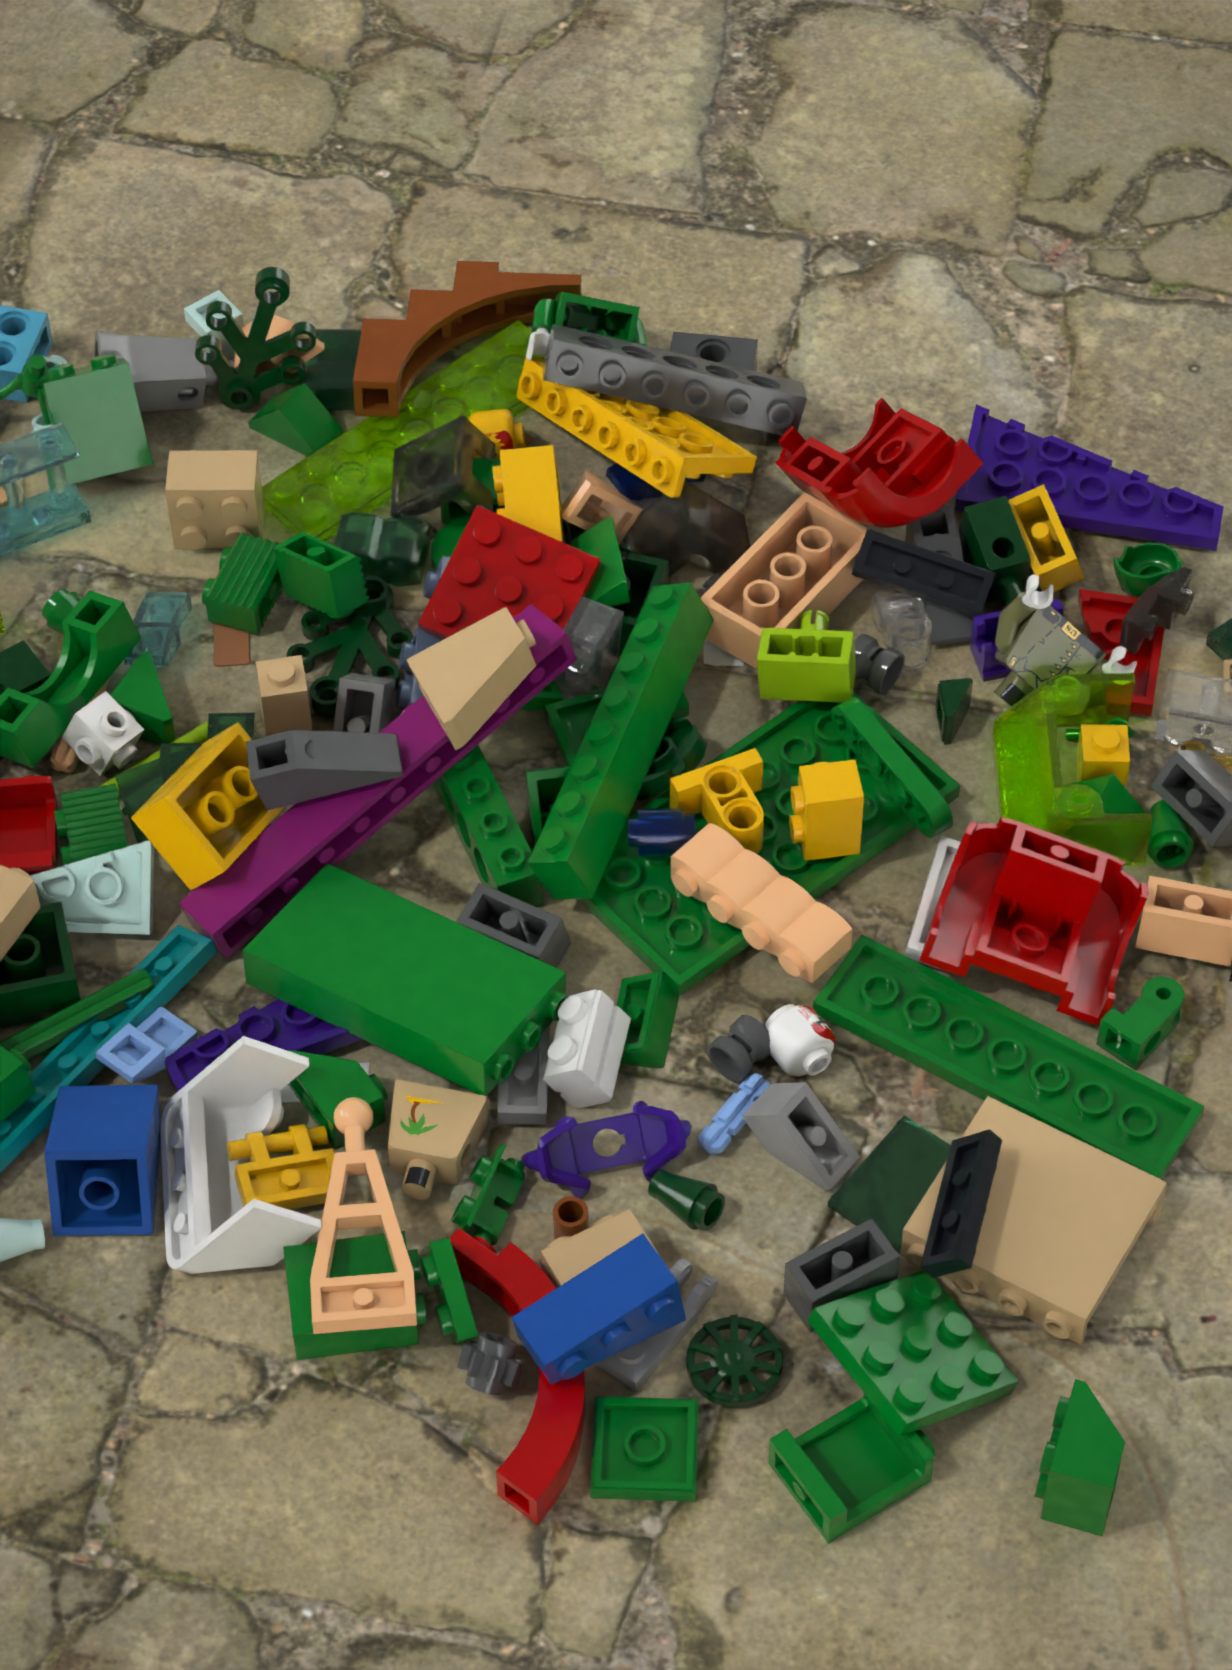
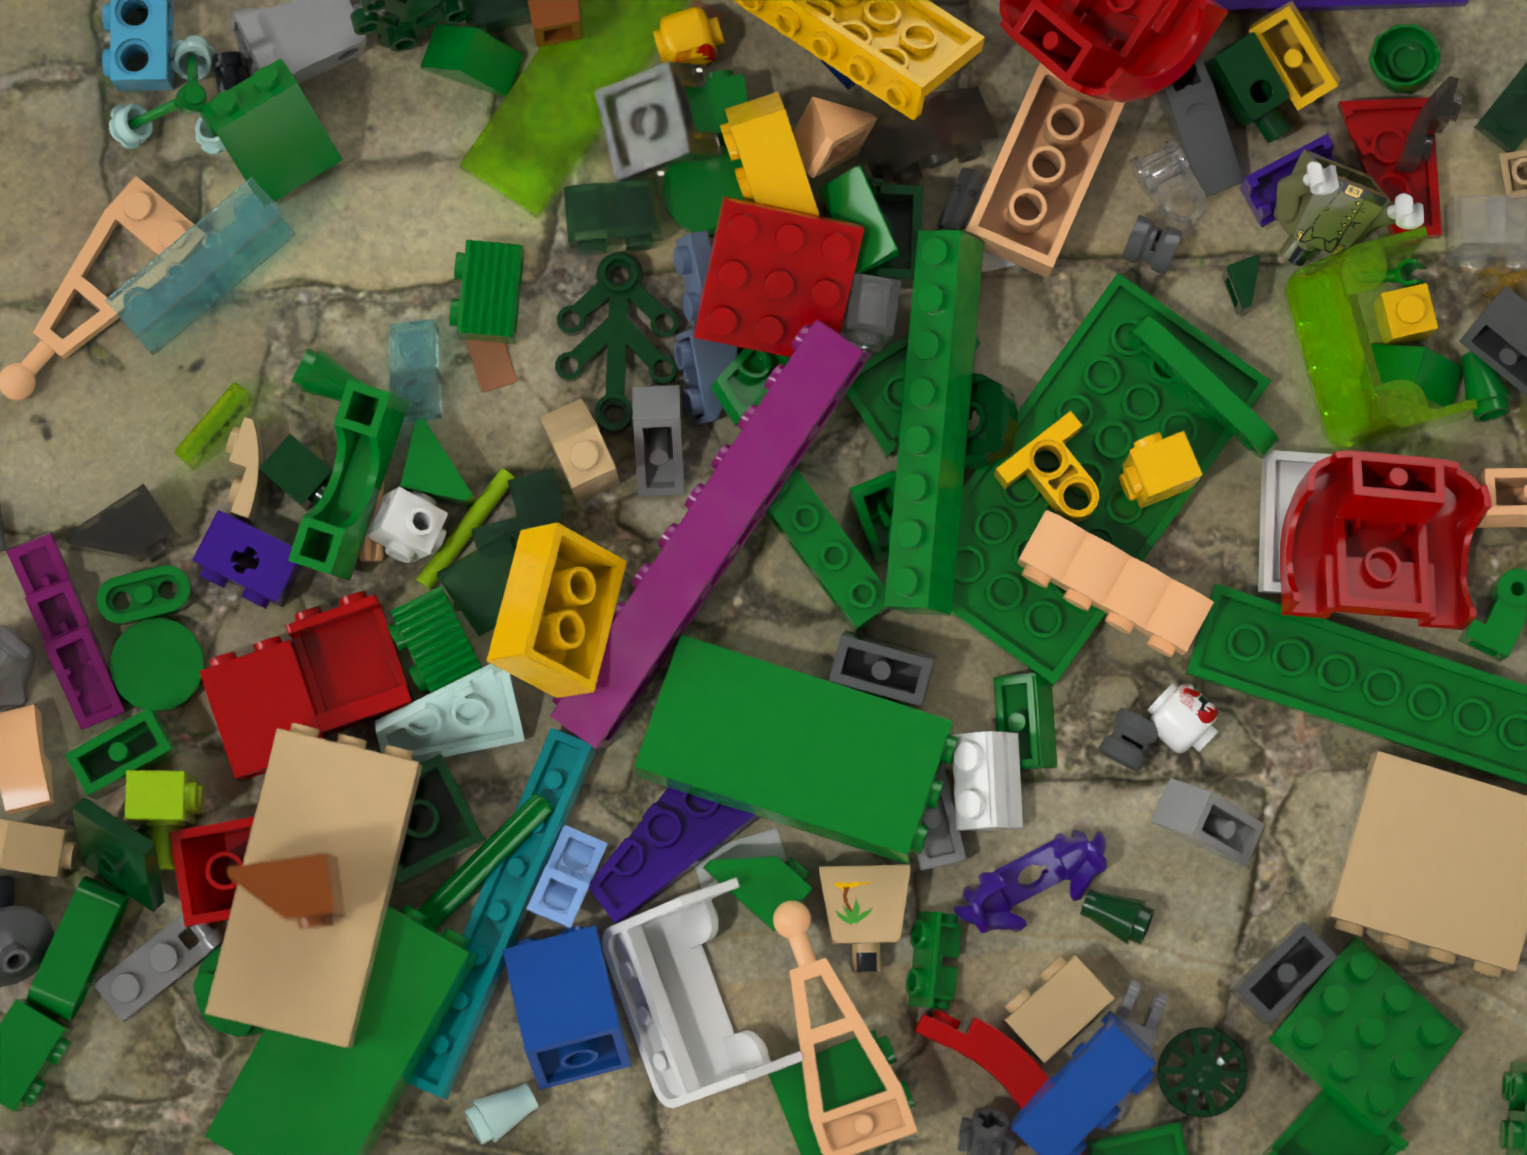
camera: 15 degrees left, 30 degrees up
(213, 497) = (428, 205): tan brick -> none
(285, 1180) = (745, 990): yellow plate -> none
(319, 763) = (660, 555): dark grey slope -> none
(321, 575) = (568, 278): green brick -> none
(444, 1275) = (922, 1066): green wing -> none
(474, 672) = (783, 428): tan slope -> none
(570, 1217) = (1005, 969): dark orange hinge -> none
(660, 831) = (999, 521): clear blue brick -> none
(729, 1118) = (1139, 809): light blue axle -> none
(807, 662) = (1094, 282): lime brick -> none
(892, 1180) = (1306, 843): clear green piece -> none
(923, 573) = (1186, 141): black plate -> none
(961, 1204) = (1383, 888): black plate -> none

